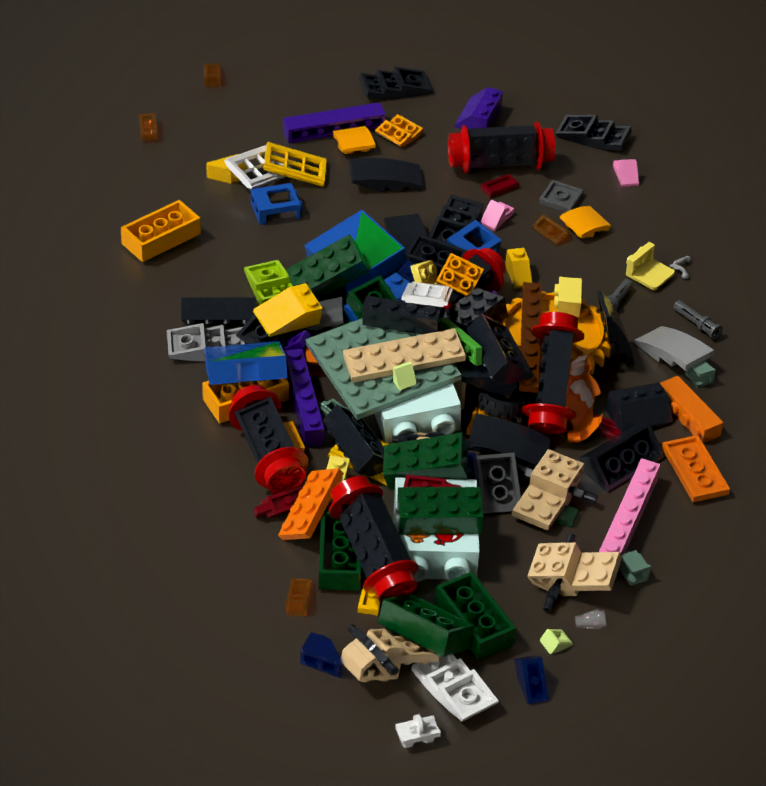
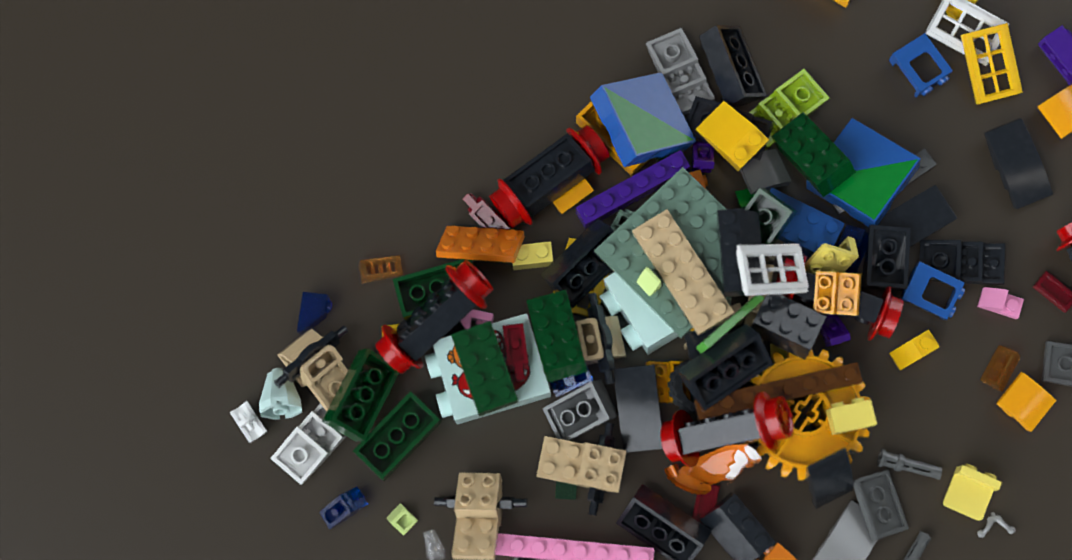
camera: 80 degrees right, 35 degrees up
(399, 696) = (280, 400): none -> light aqua cone
(646, 321) = (880, 505): none -> dark grey tile

